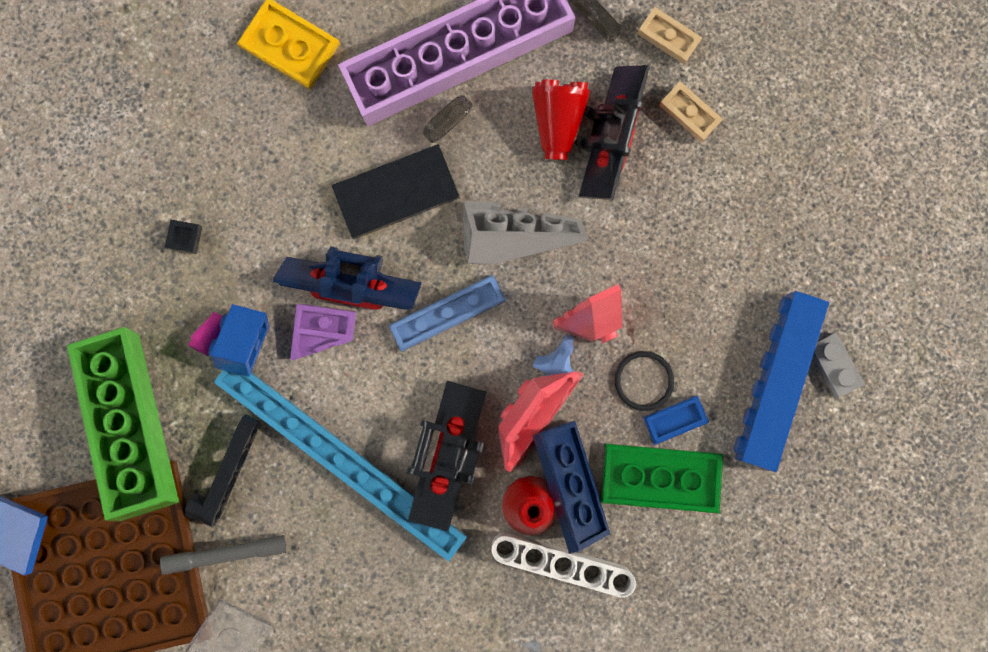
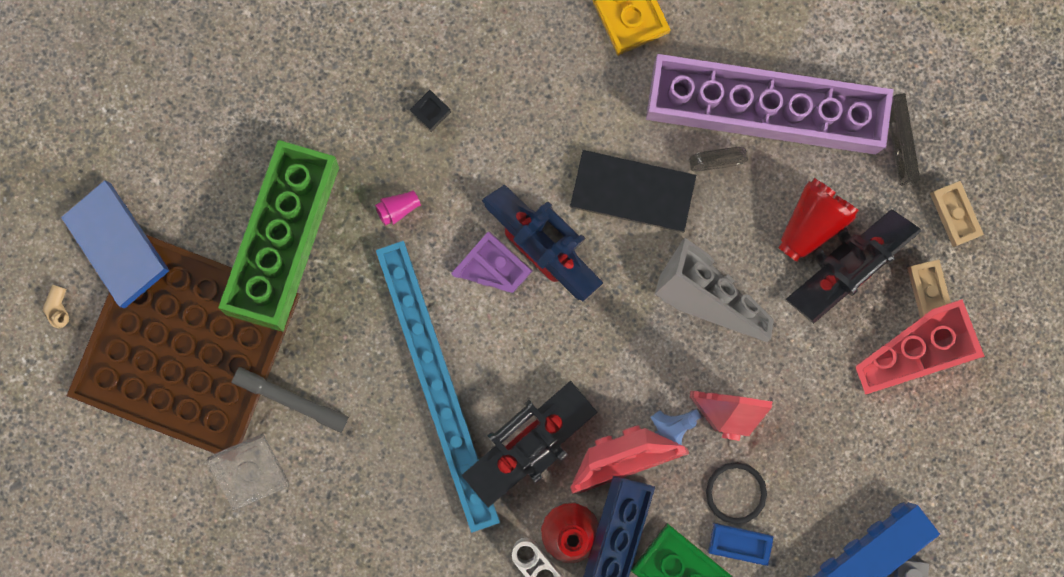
camera: 30 degrees right, 0 degrees up
(209, 508) = (301, 352): black beam -> none
(239, 340) = (420, 230): blue brick -> none
(447, 313) = (608, 323): medium blue tile -> none
(719, 154) = (928, 346): none -> coral wedge

